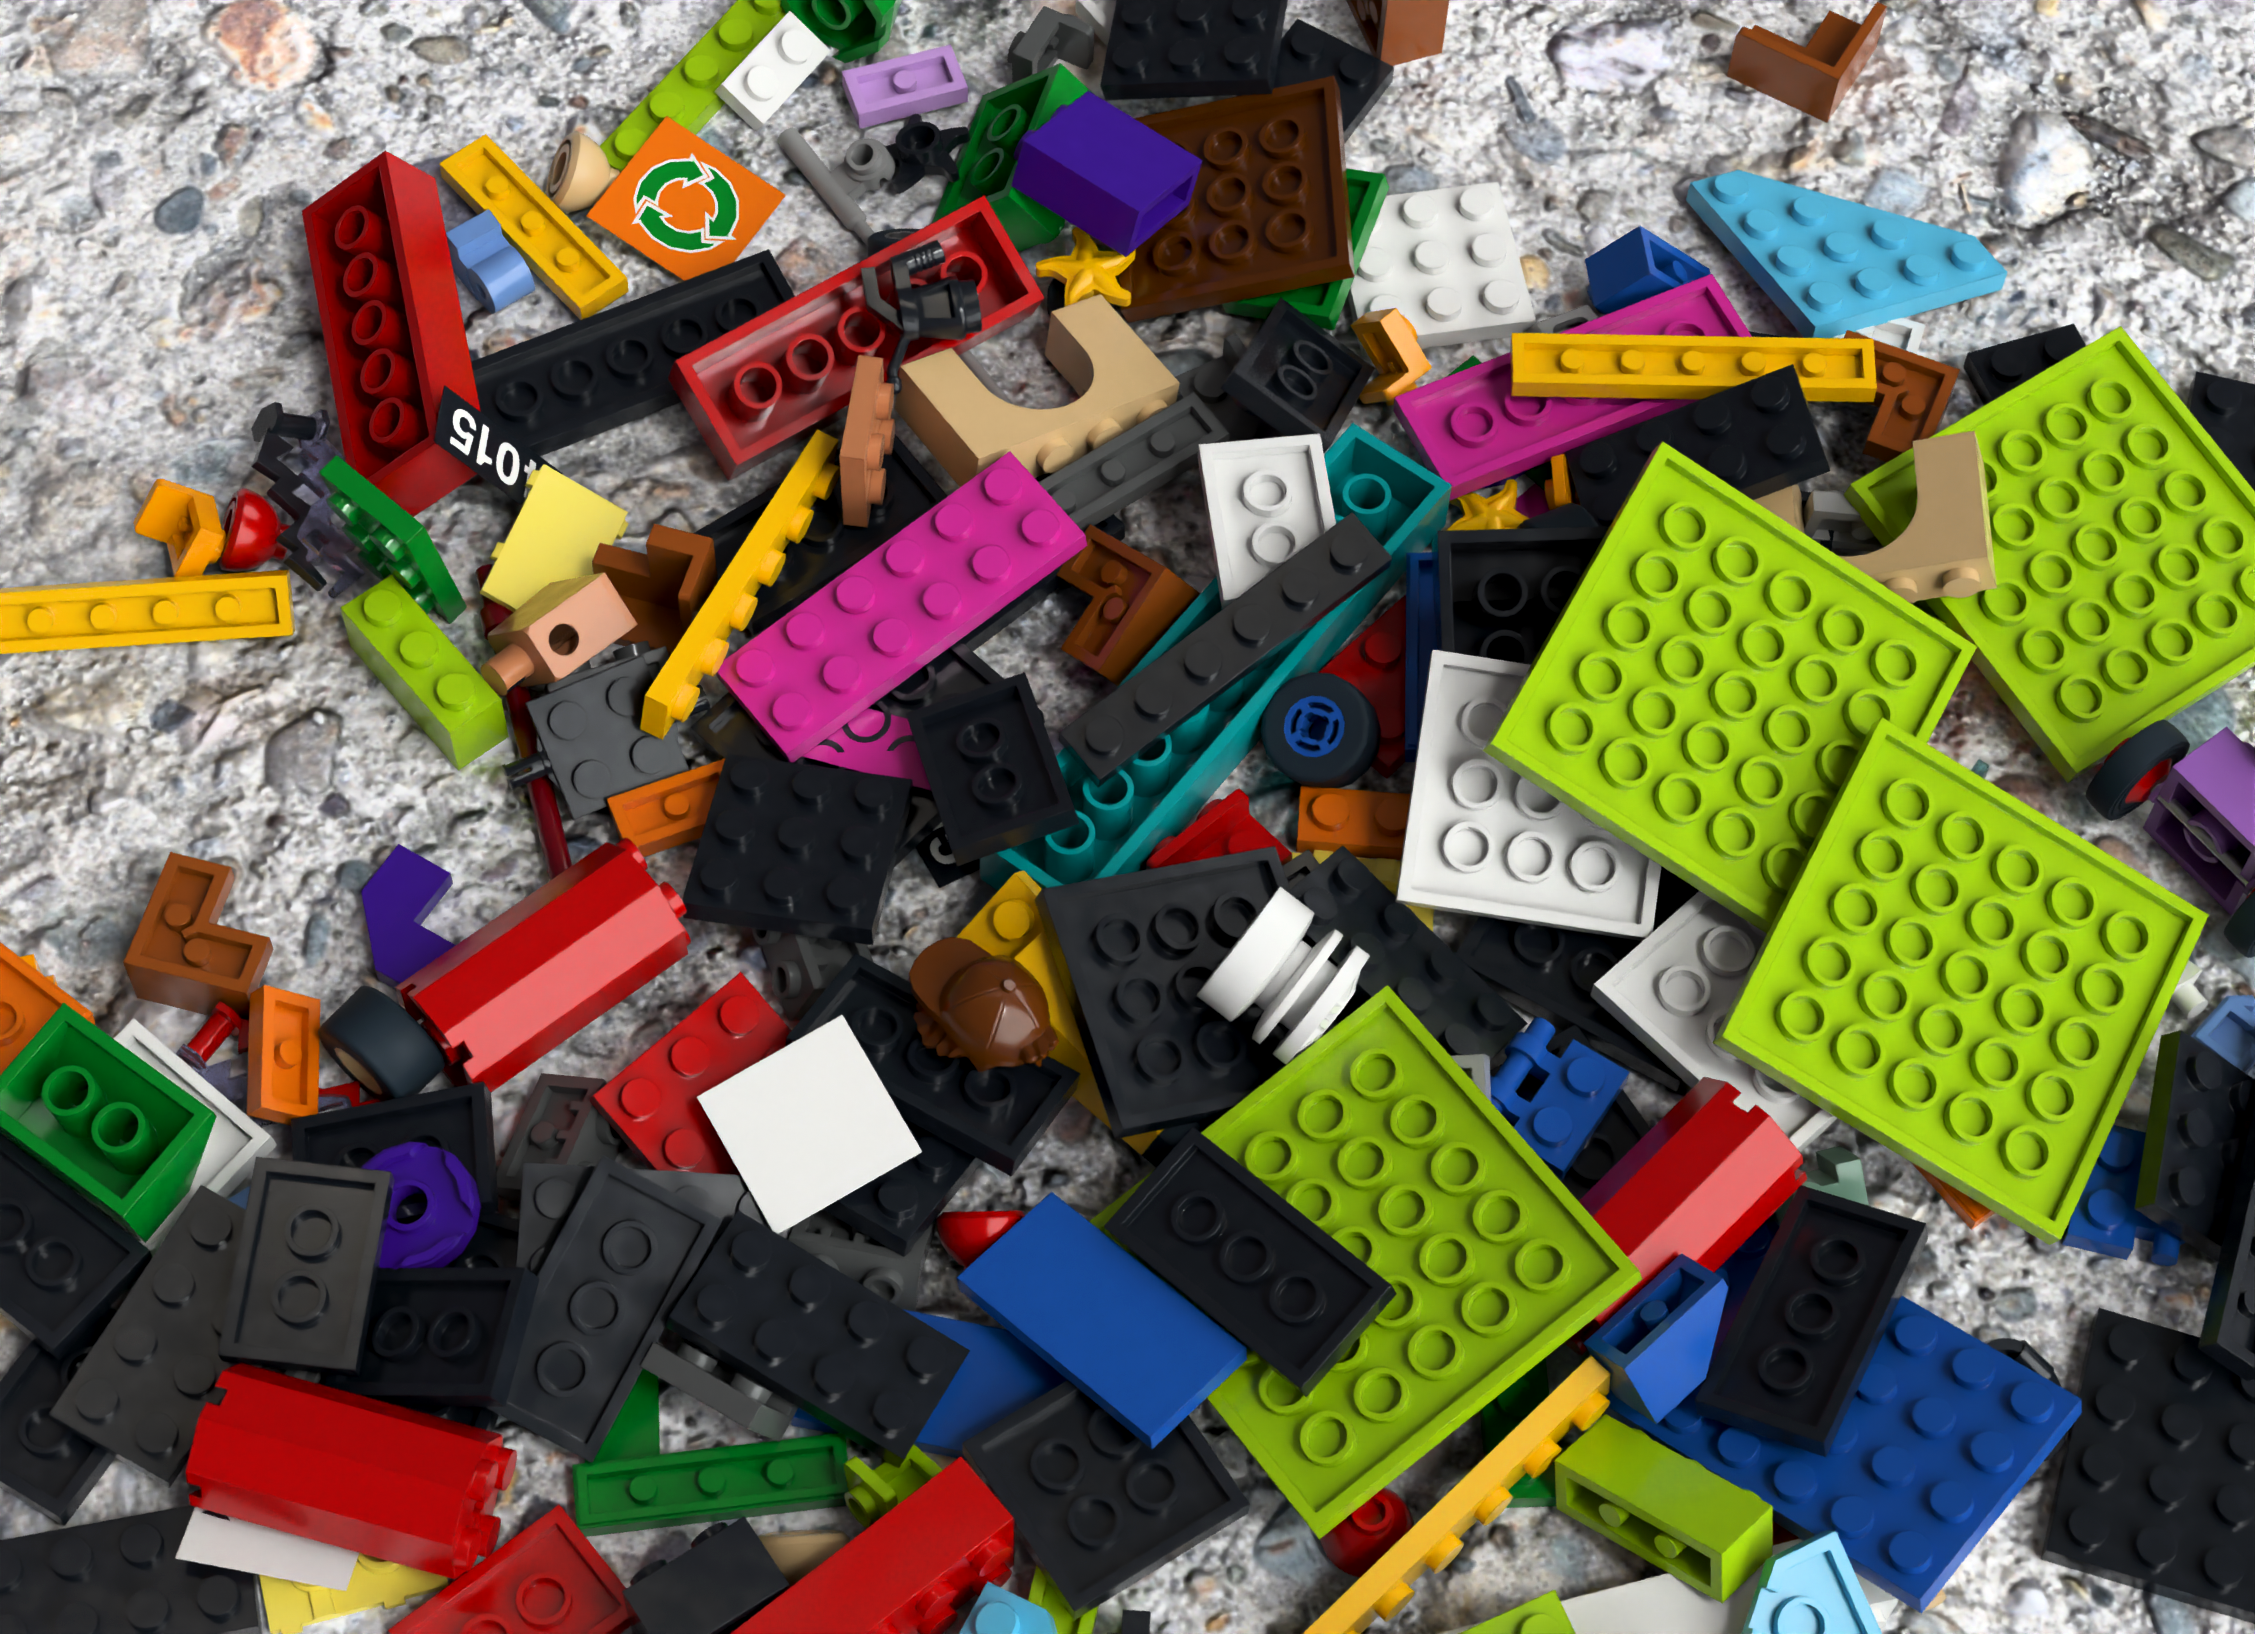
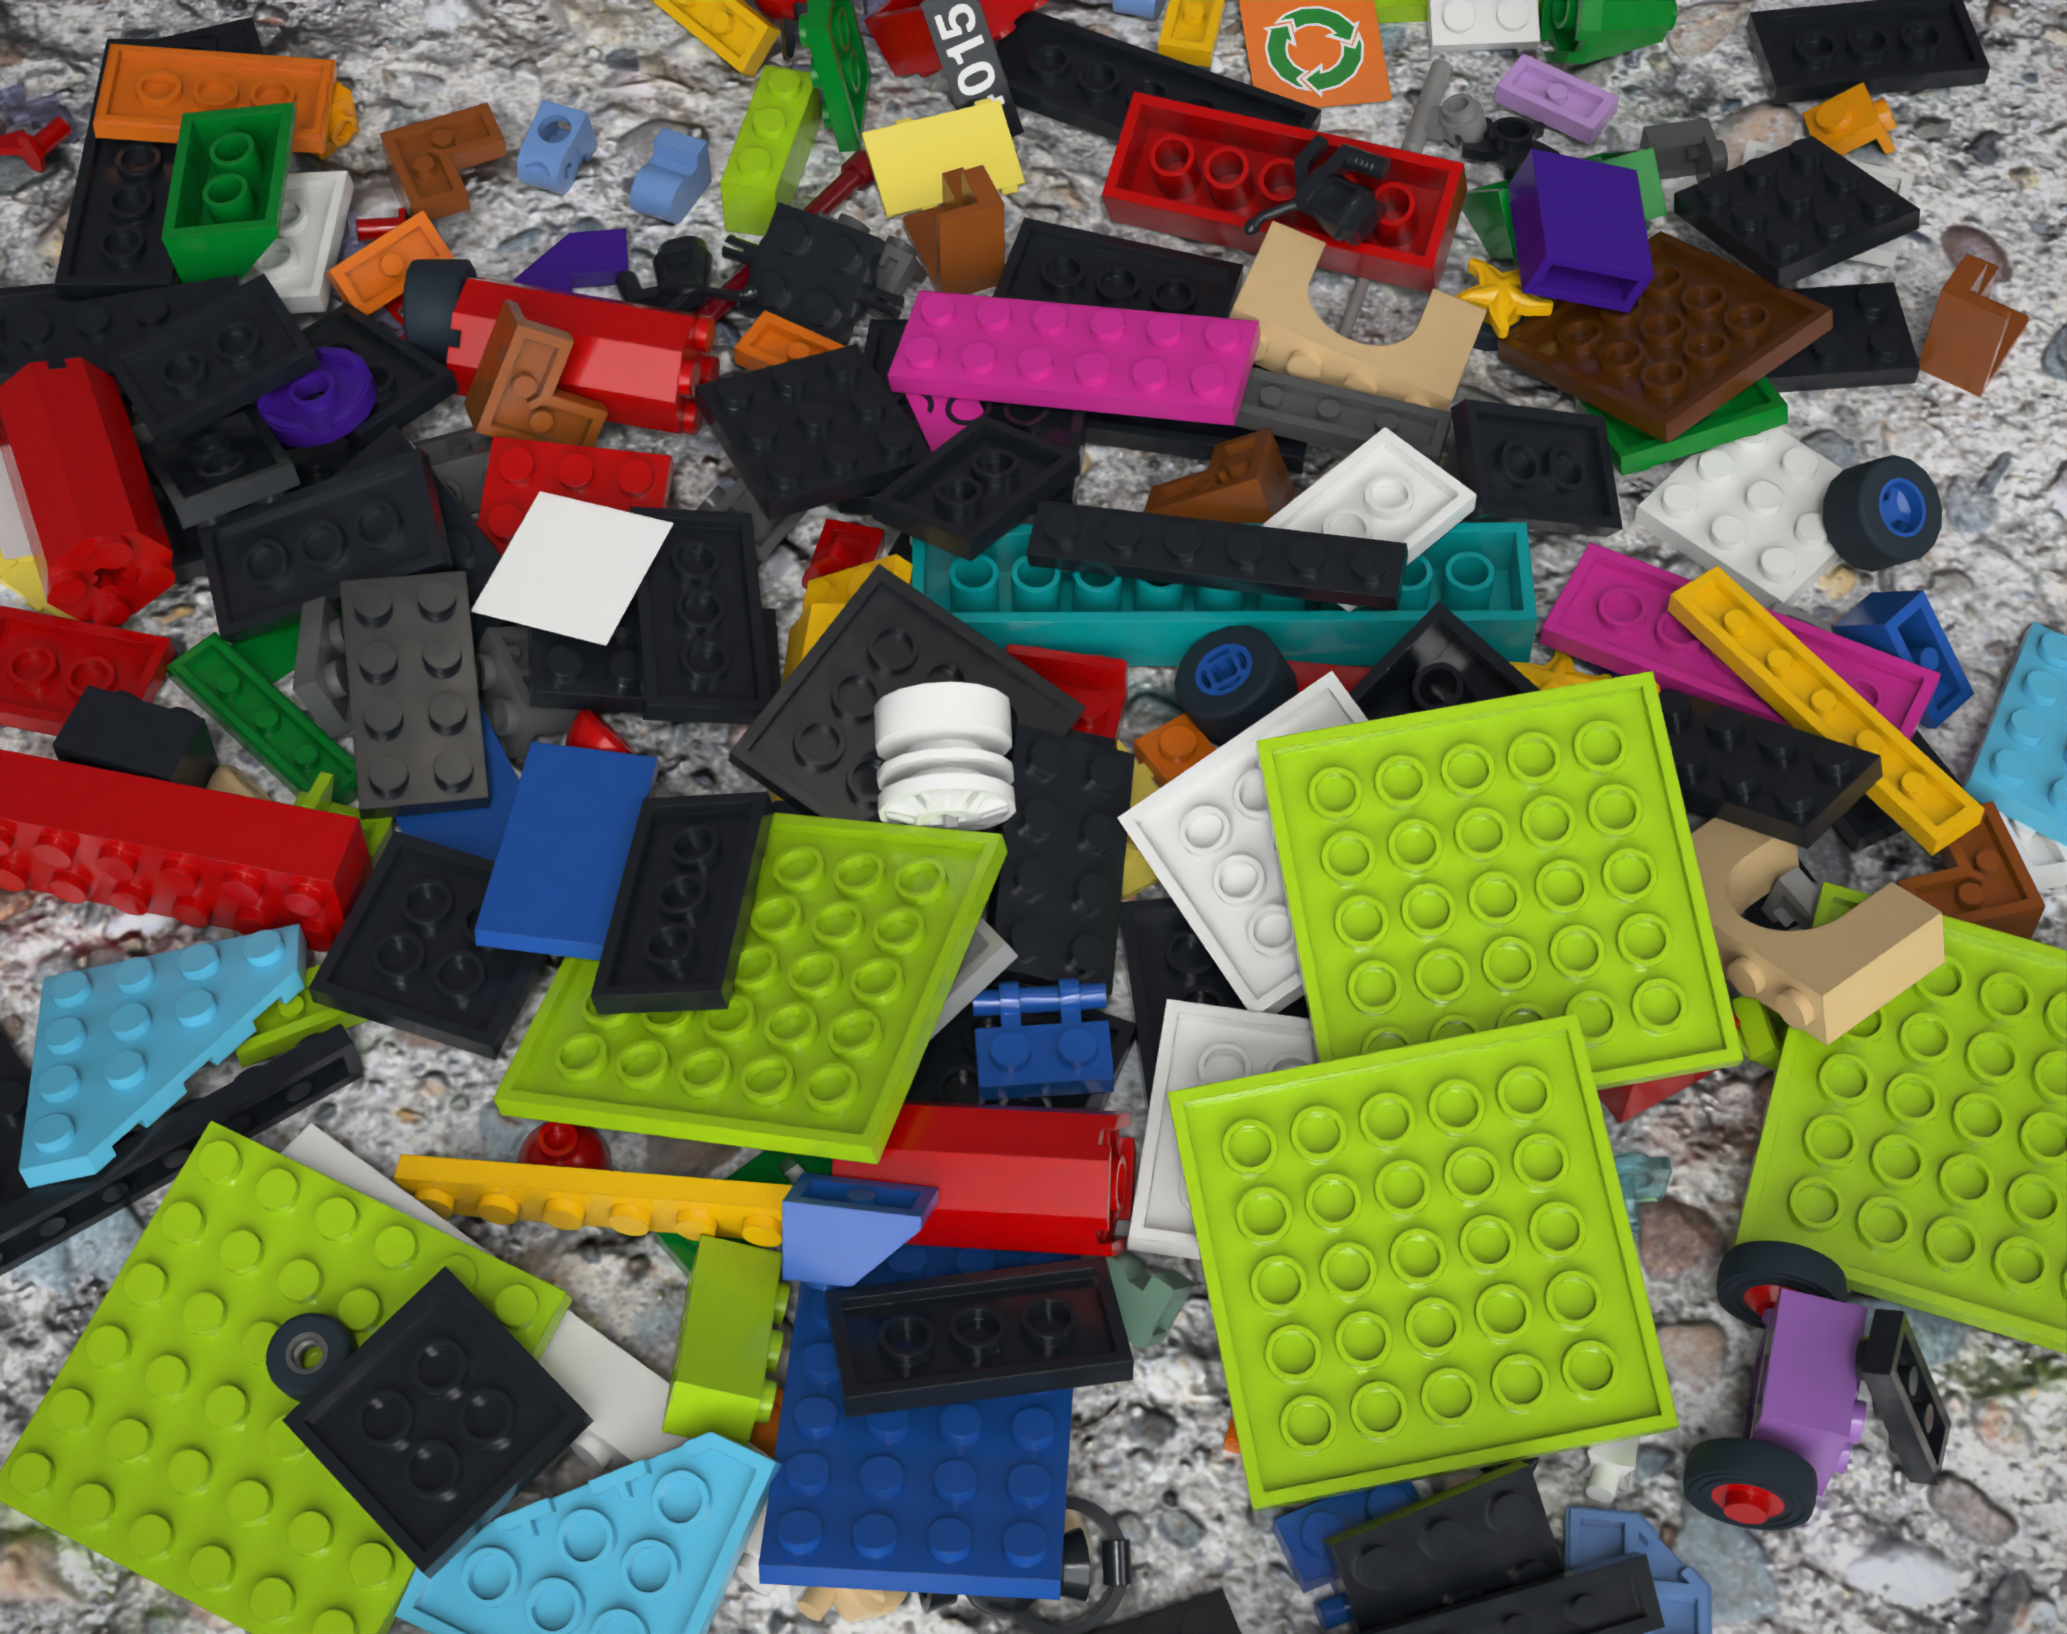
camera: 55 degrees right, 5 degrees down
(251, 836) = (553, 154): none -> medium blue leg
(375, 768) = (672, 177): none -> medium blue leg
(503, 836) = (681, 277): none -> black piece
(556, 633) = (877, 189): nougat torso -> none
(561, 1036) = (517, 385): none -> dark orange panel
(733, 599) = (997, 253): yellow plate -> none
(866, 438) = (1186, 241): nougat plate -> none
(921, 916) = (843, 547): none -> red tile
(980, 1006) = (757, 598): reddish brown hair -> none
(1394, 352) = (1647, 514): light orange bracket -> none
(1524, 196) = (1882, 513): none -> black wheel

